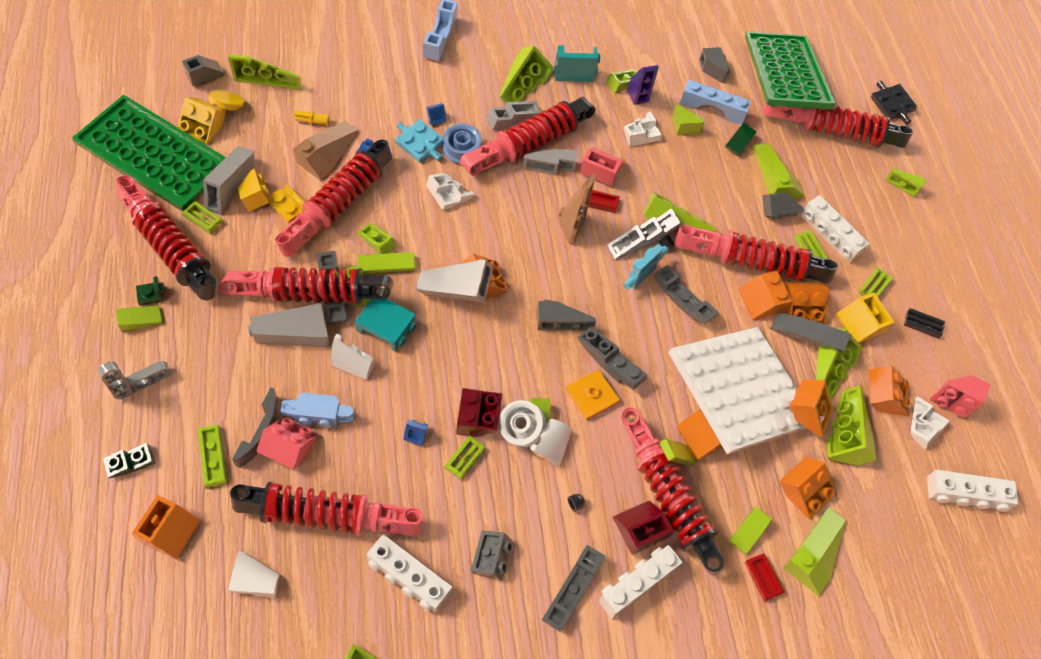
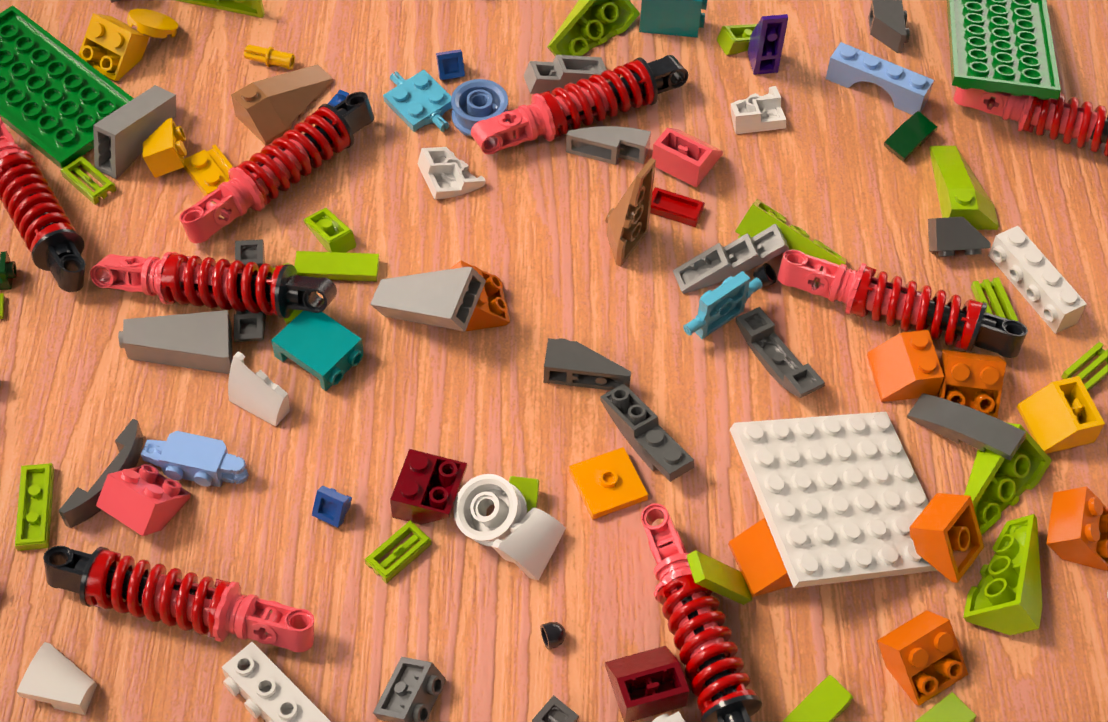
camera: 15 degrees right, 5 degrees down
(686, 121) = (829, 104): lime slope -> none

